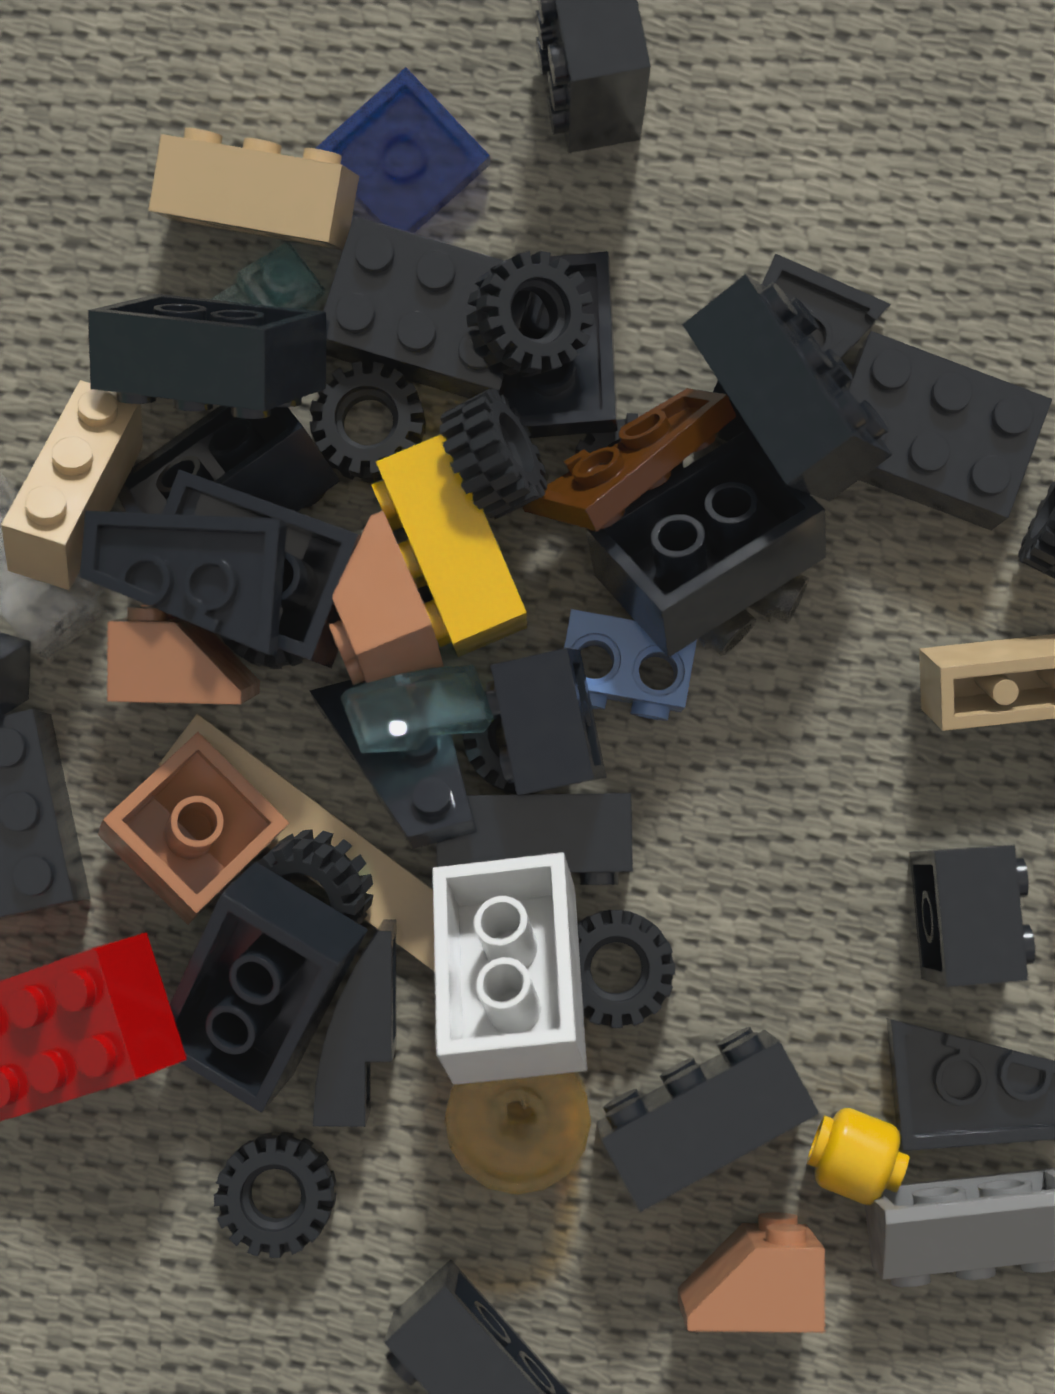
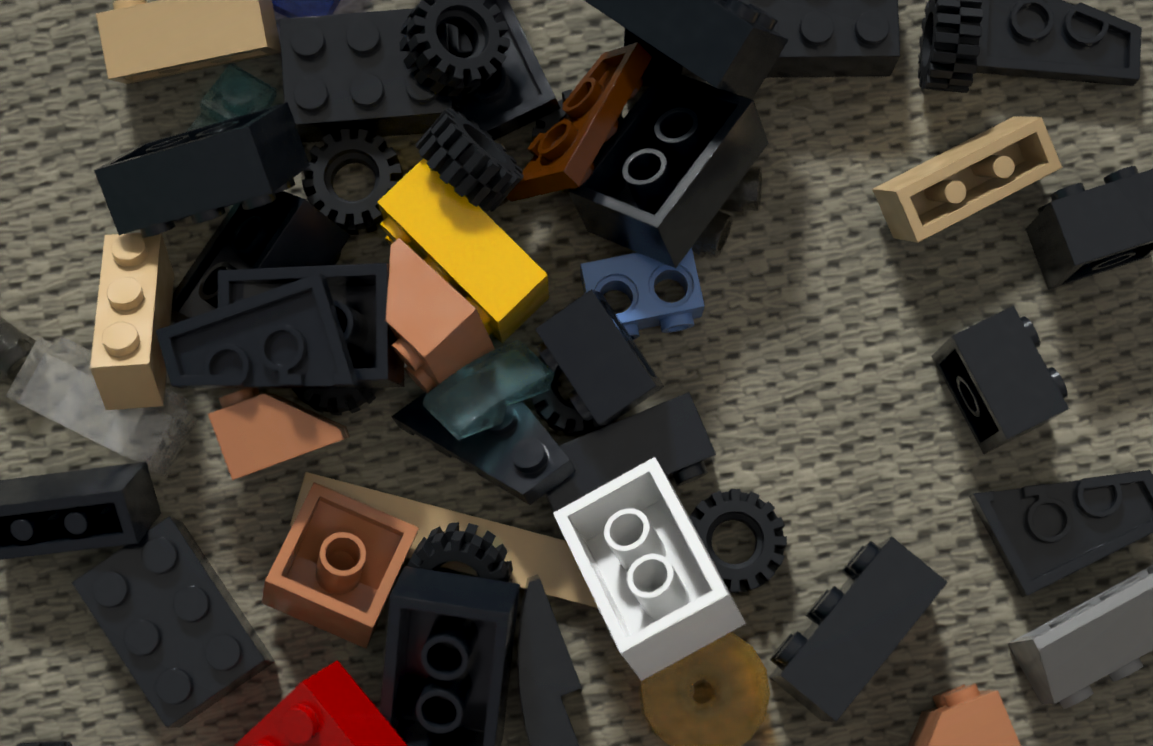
camera: 25 degrees left, 5 degrees down
(857, 1156) = (992, 614): yellow head -> none

